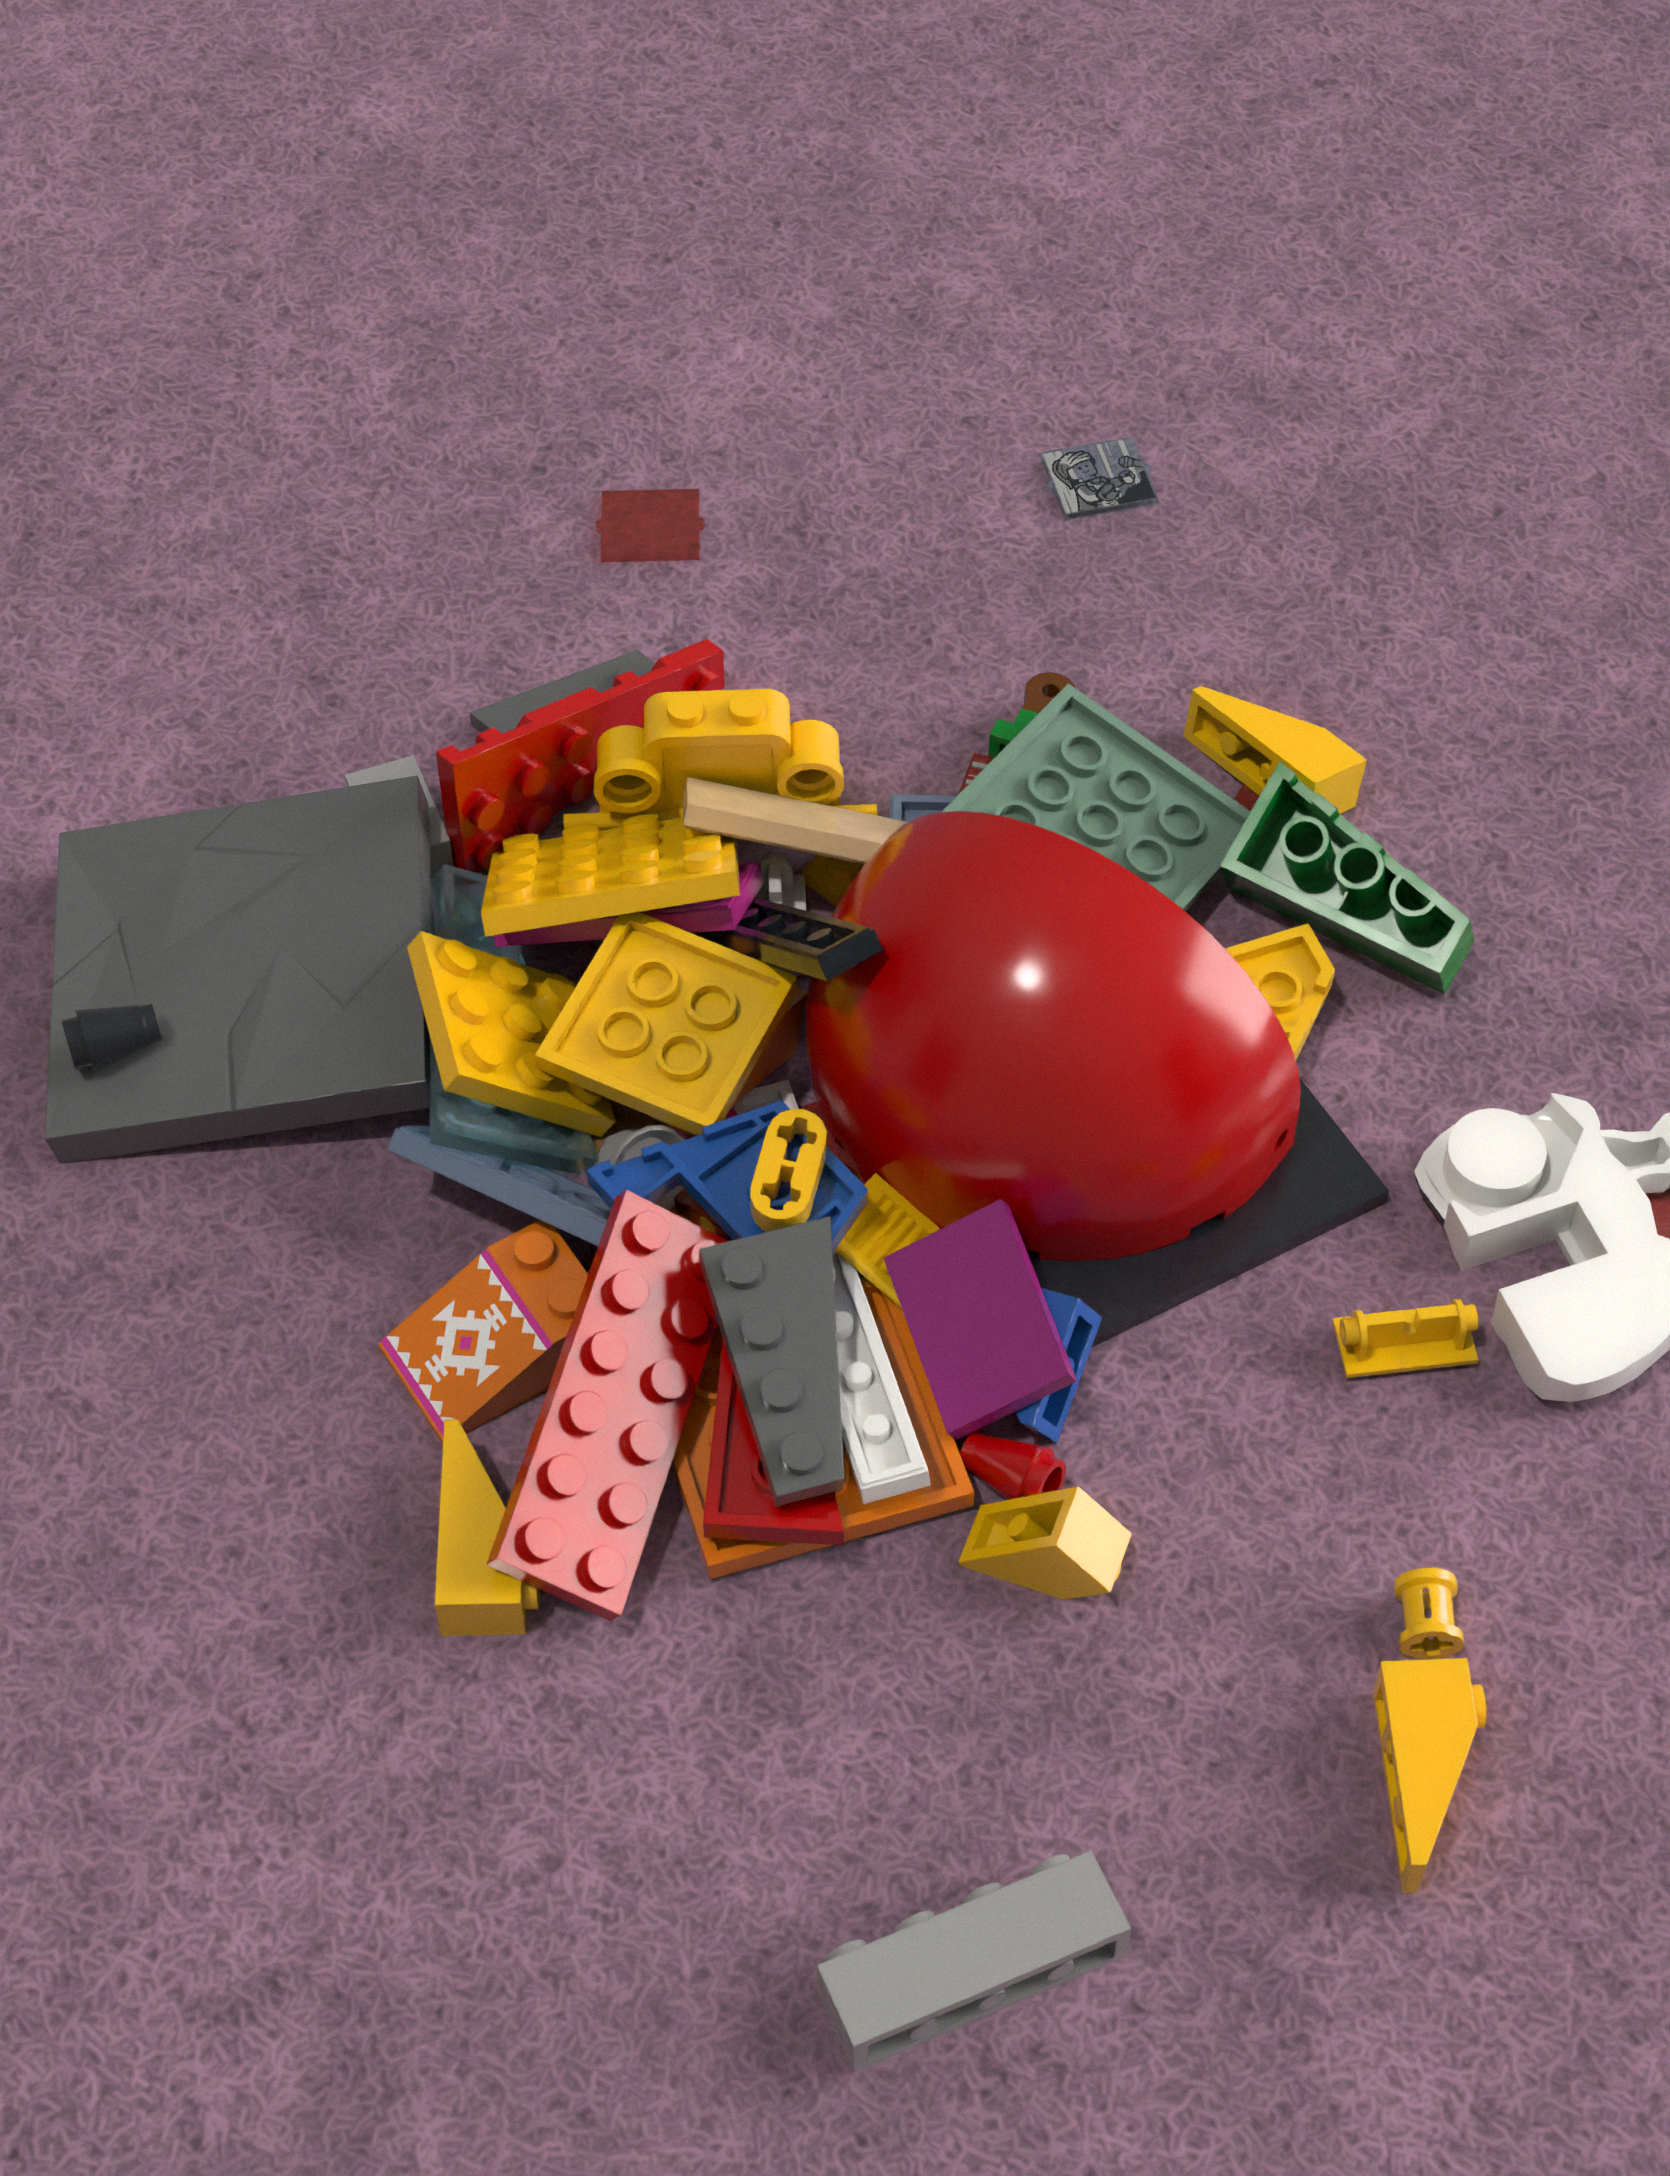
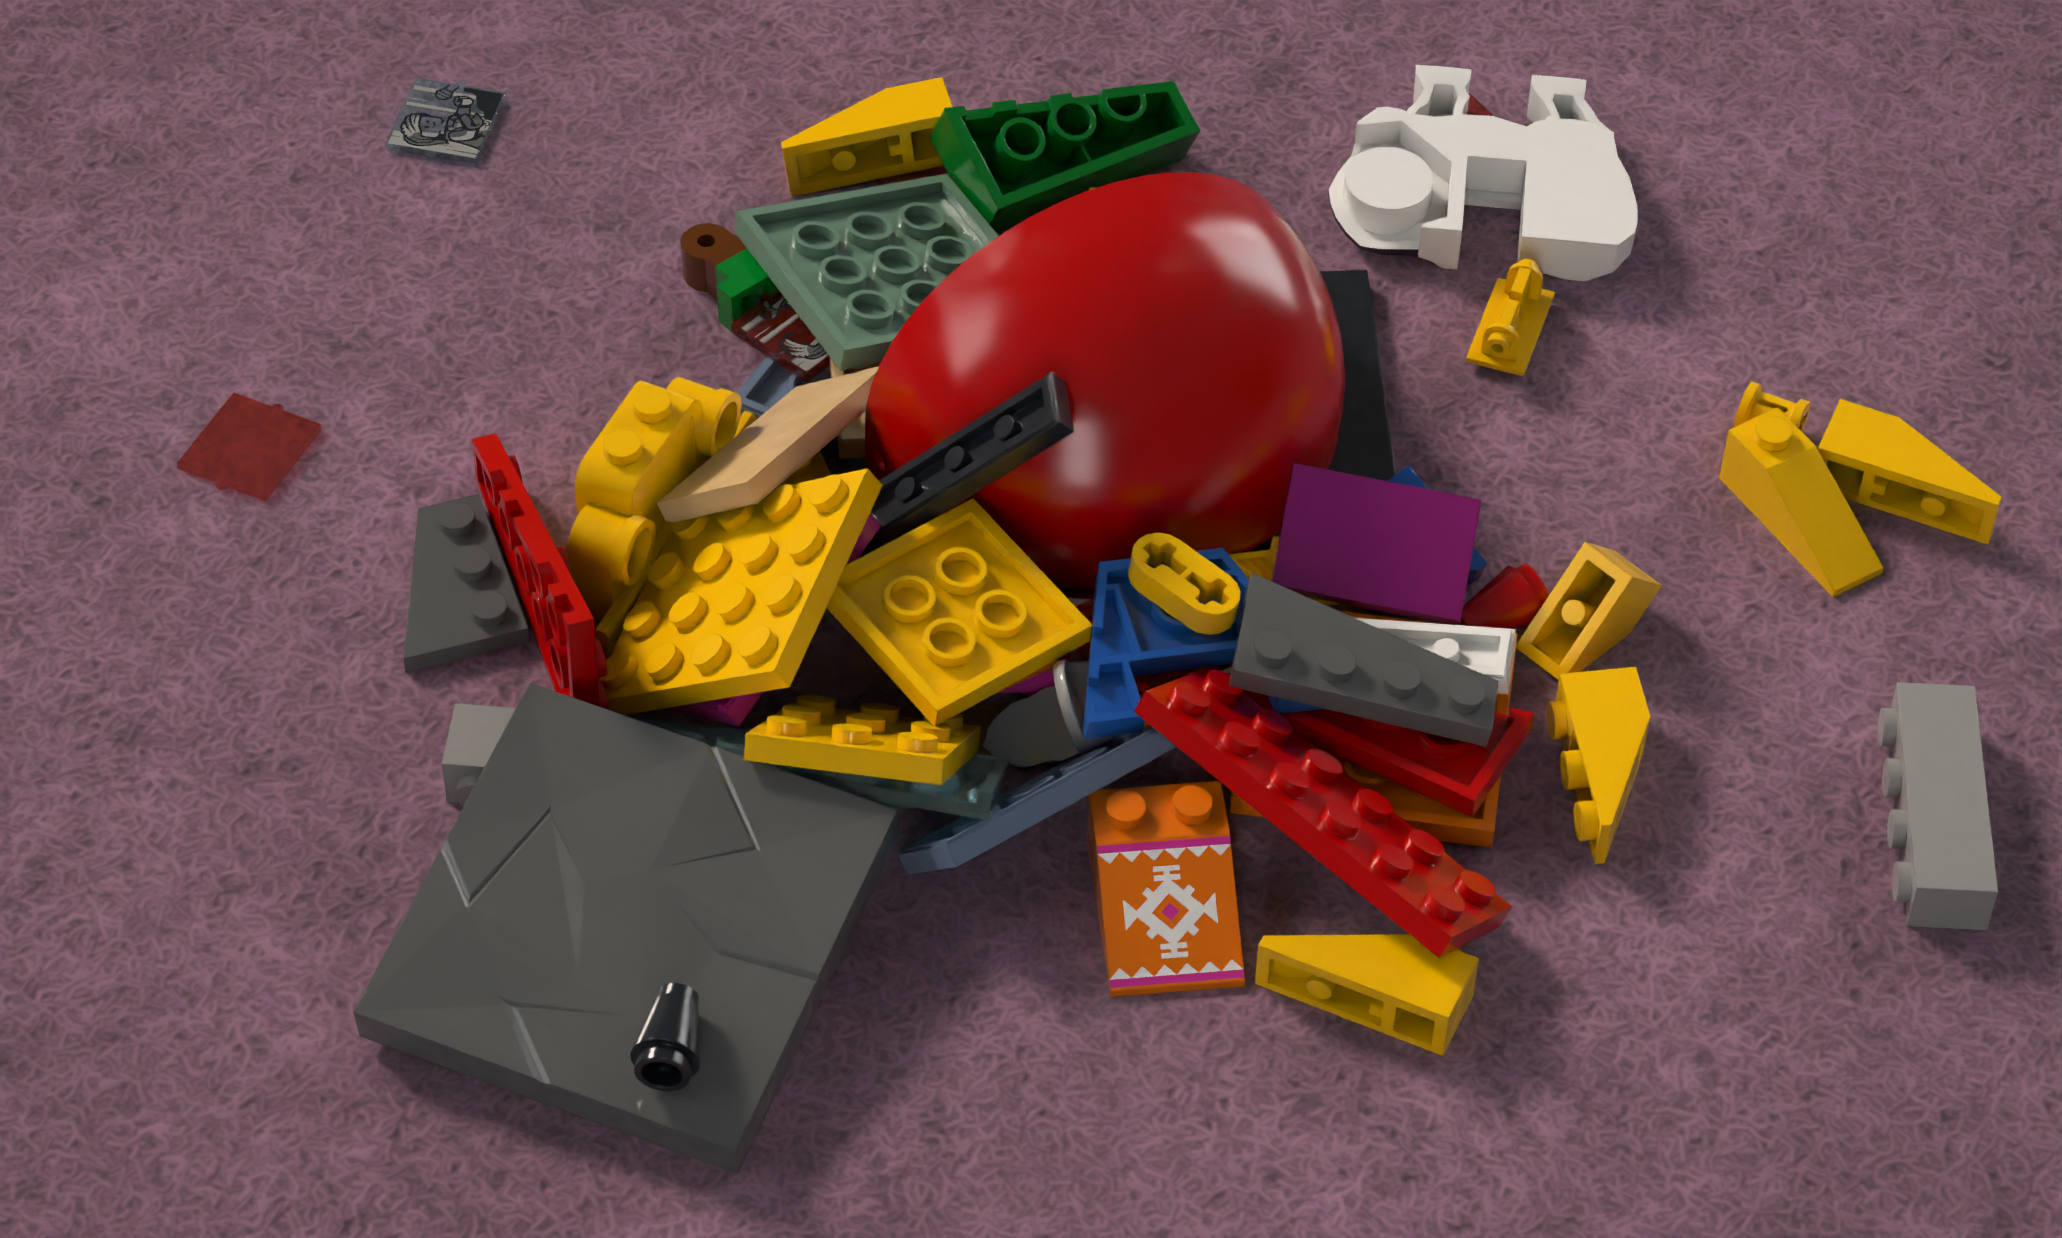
camera: 65 degrees left, 5 degrees down
(874, 1624) = (1603, 738): none -> yellow slope
(1318, 1683) = (1798, 500): none -> yellow slope

